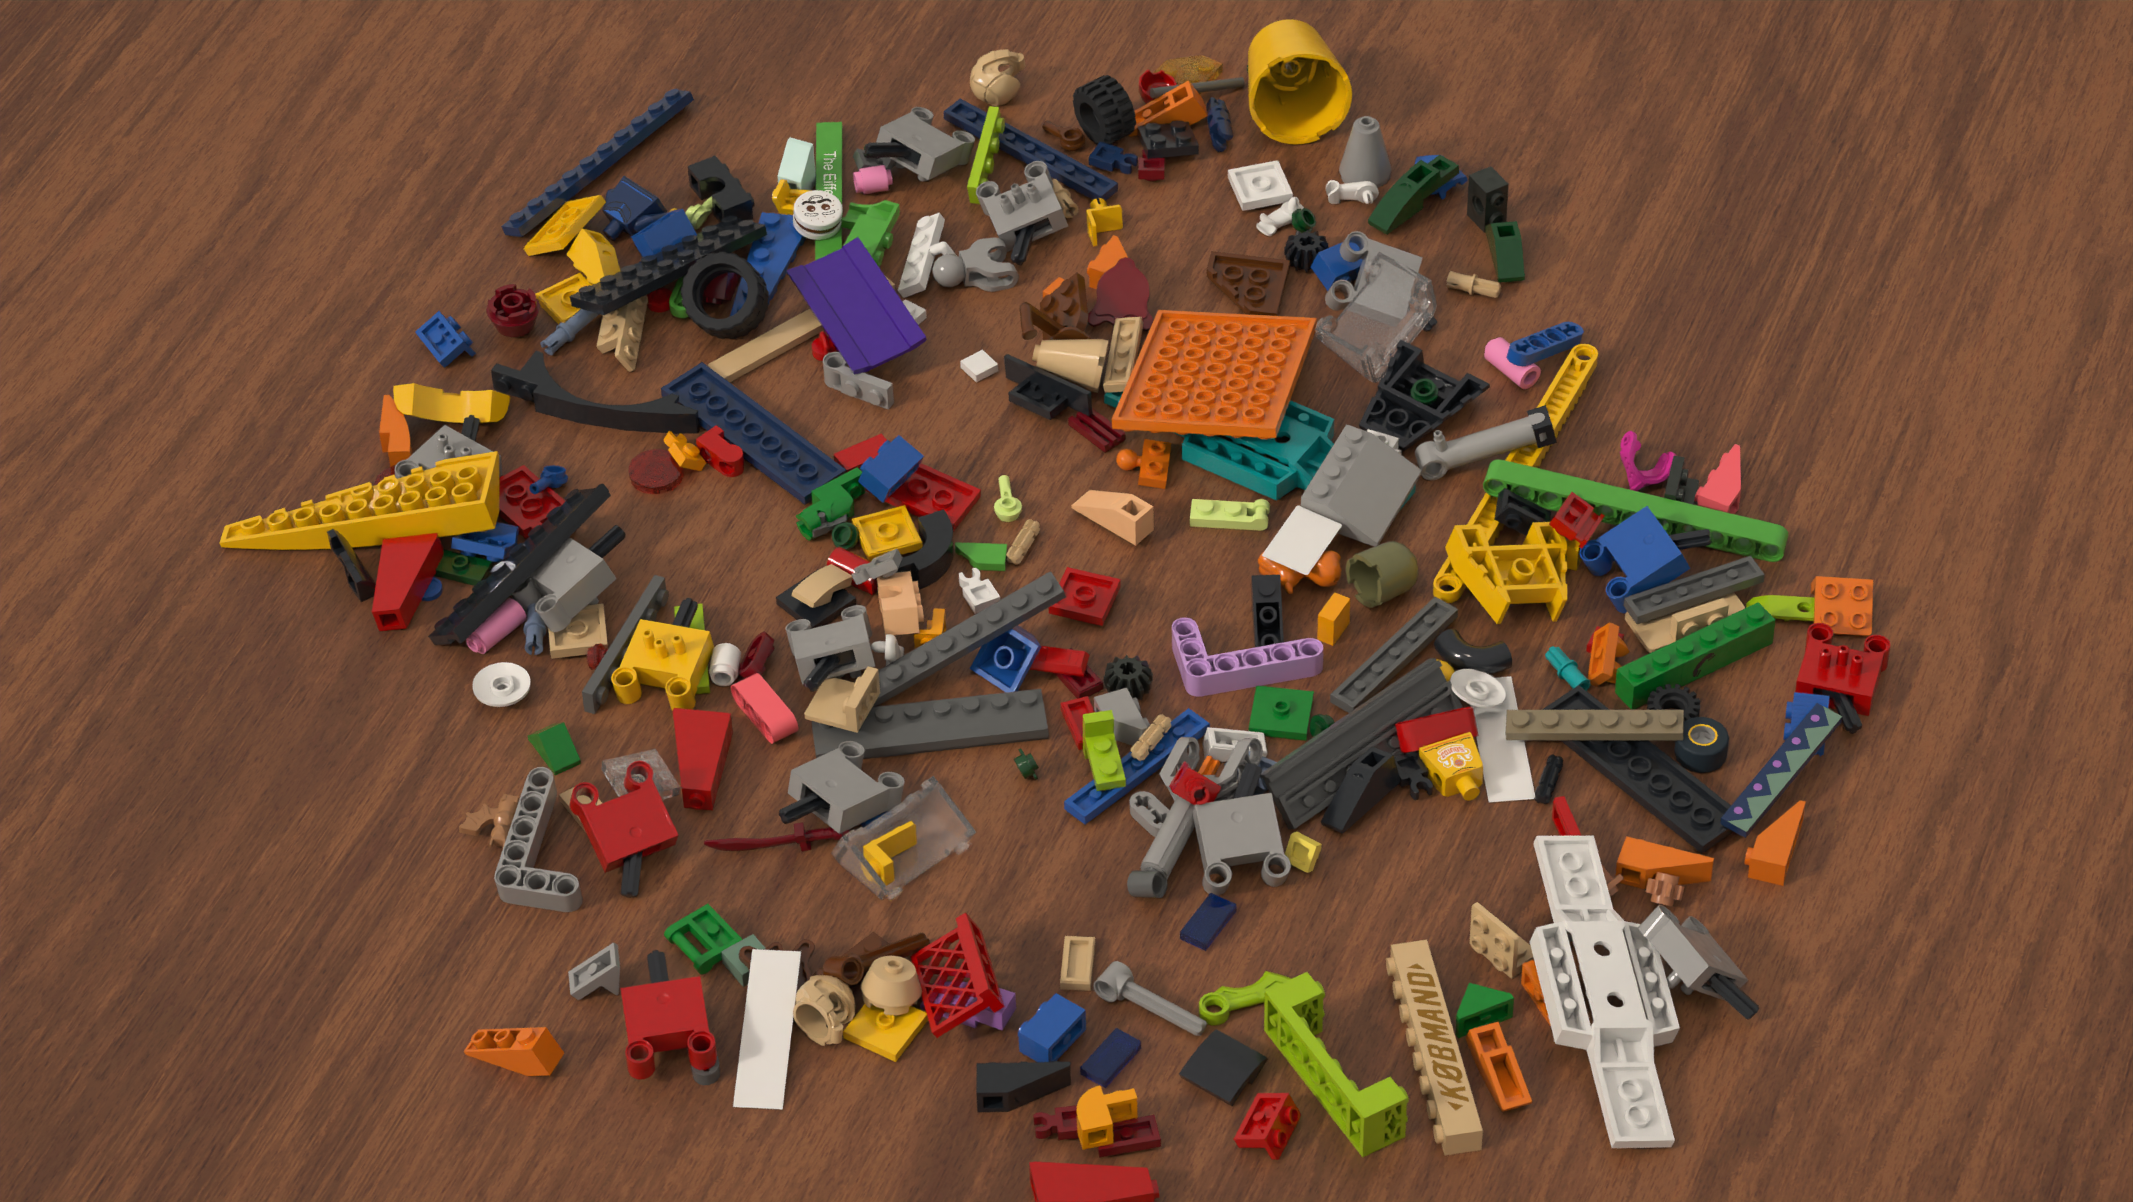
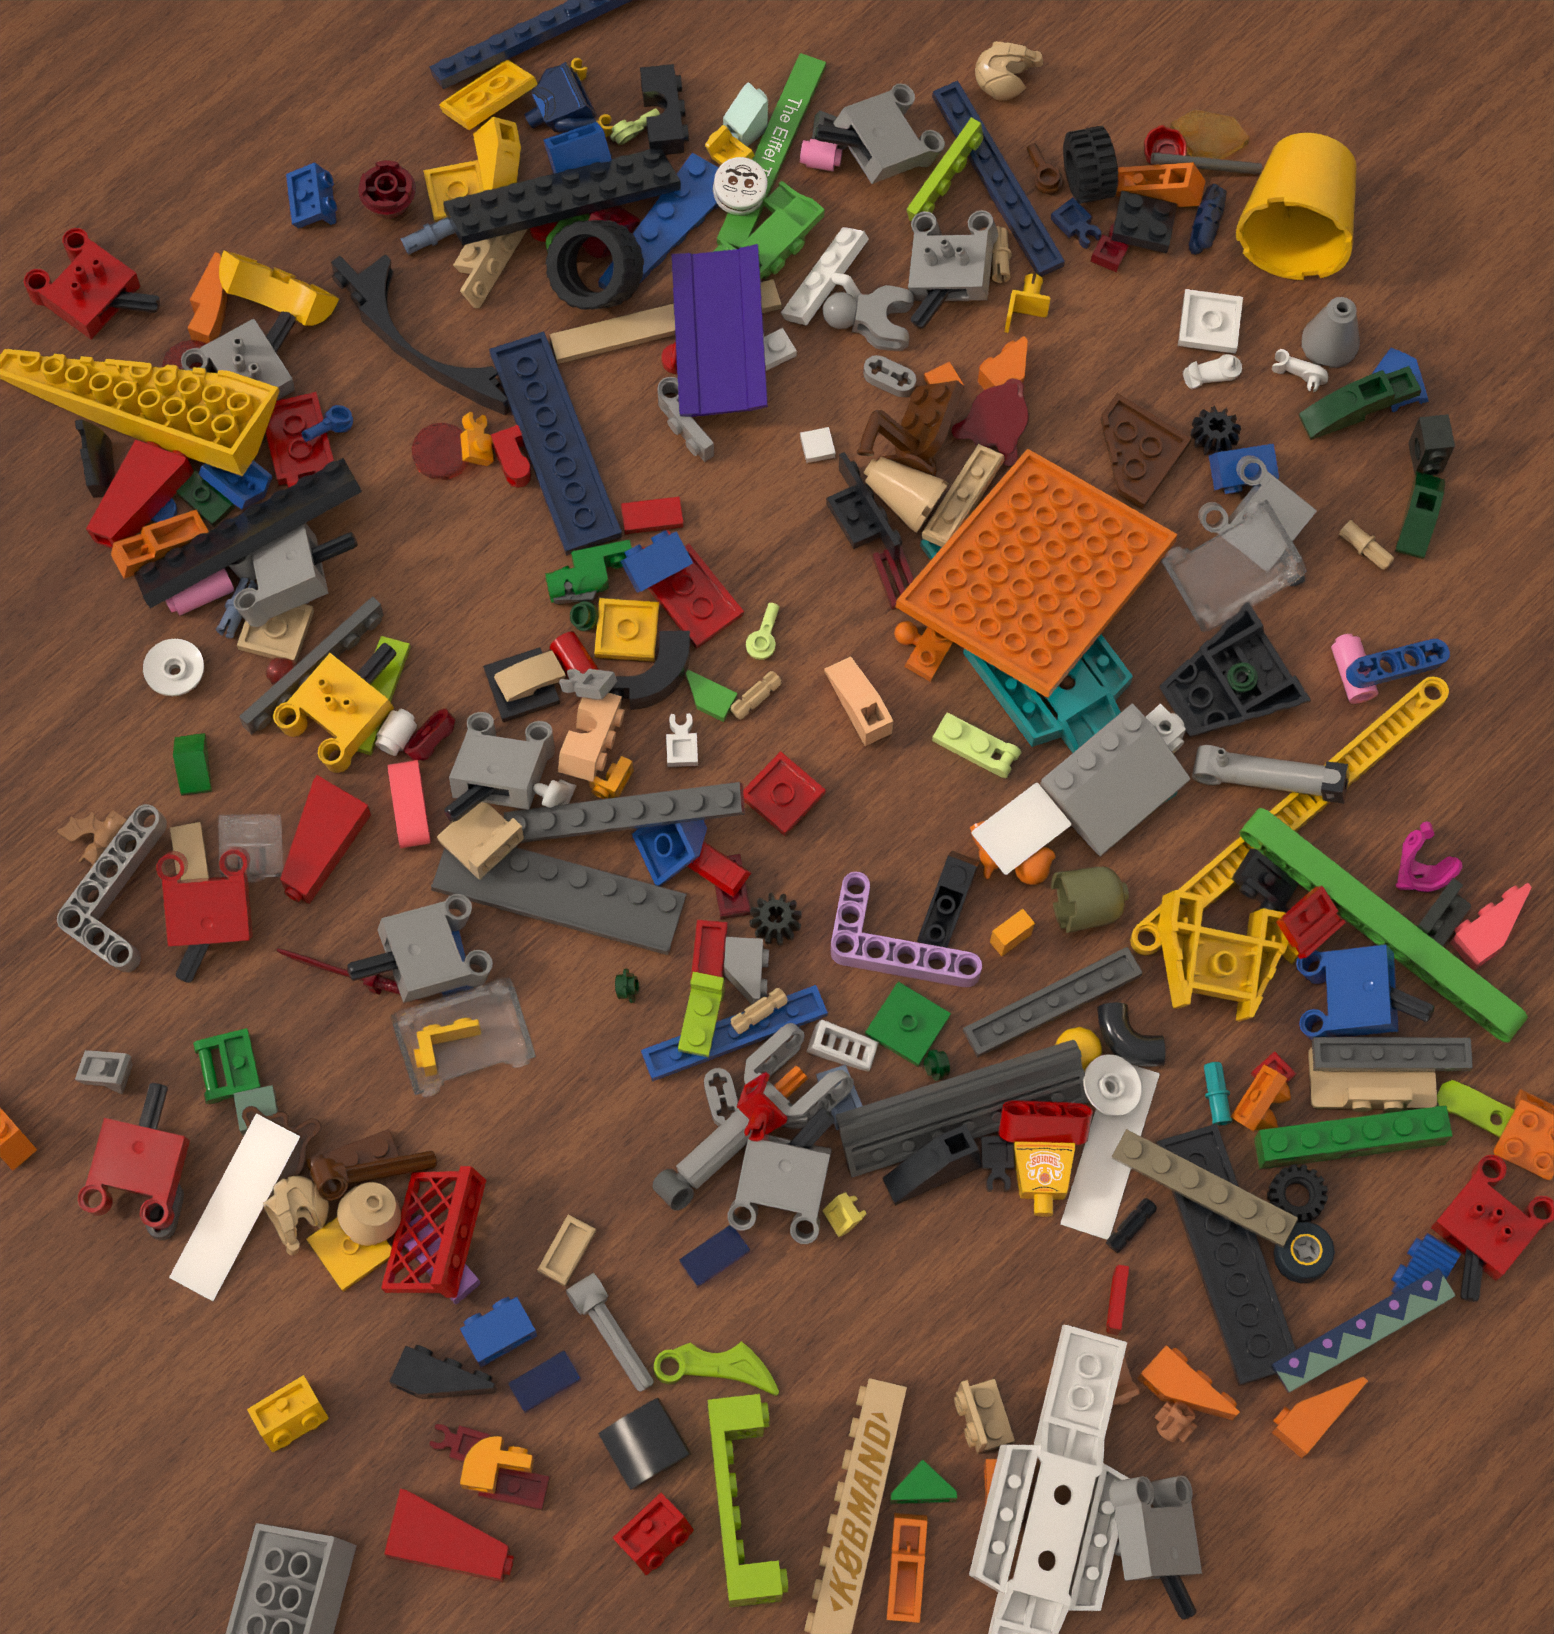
camera: 20 degrees right, 25 degrees up
(280, 457) = (90, 287): none -> red piece
(435, 605) = (156, 541): none -> orange slope
(897, 1157) = (287, 1414): none -> yellow bracket
(1009, 301) = (889, 376): none -> light grey beam
(1303, 219) = (1232, 387): dark green plate -> none

